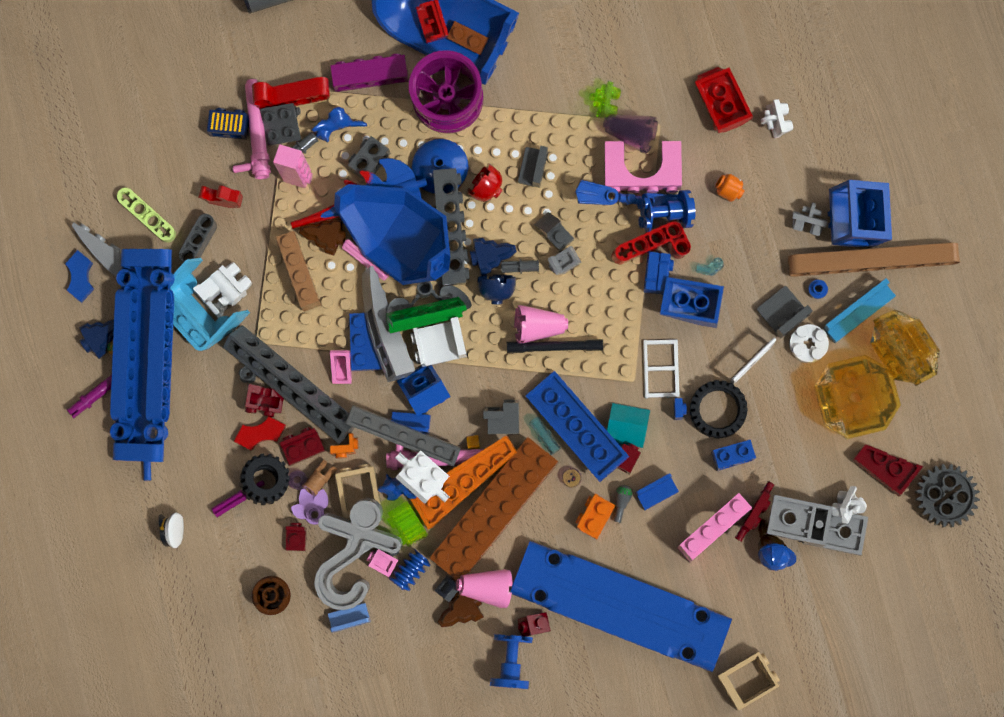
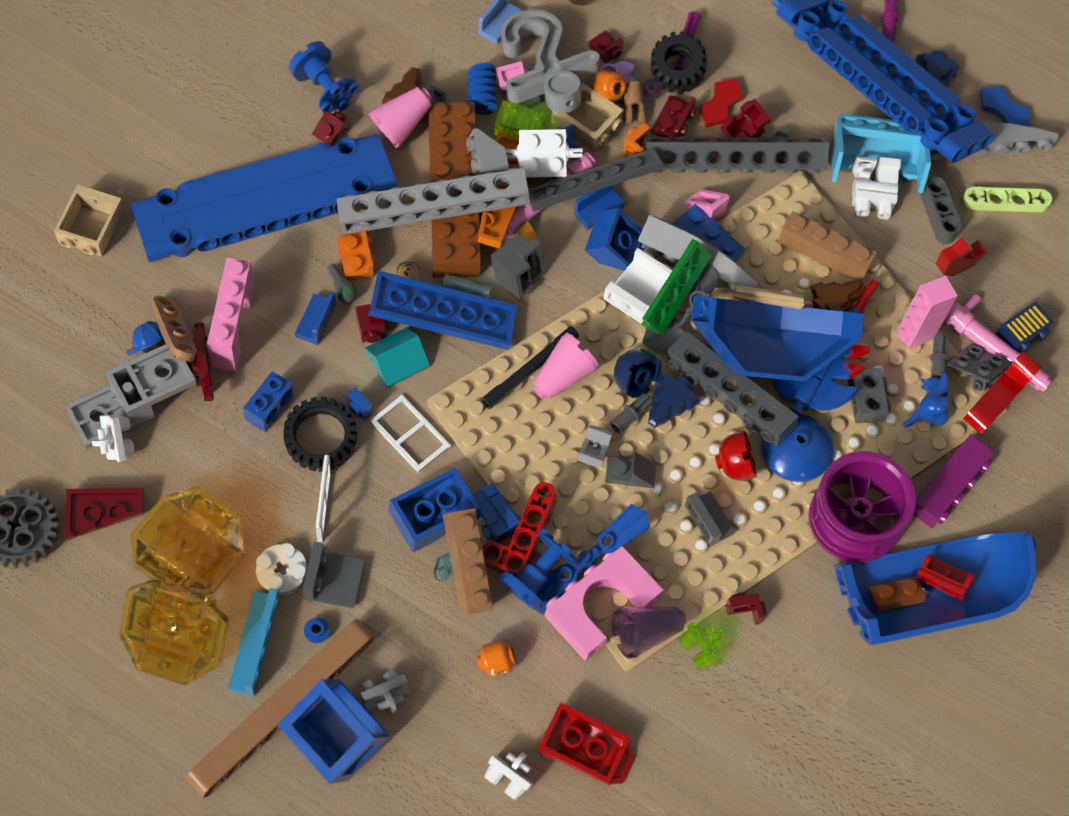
camera: 120 degrees right, 15 degrees down
(327, 499) = (609, 84): none -> orange head
(372, 263) = (769, 297): none -> tan axle
(461, 502) = (486, 153): none -> light grey slope
(561, 105) = (744, 603): none -> dark red bracket
(585, 532) = (443, 207): none -> light grey brick
(702, 250) = (467, 562): none -> medium nougat brick
(763, 533) = (173, 328): none -> medium nougat piece

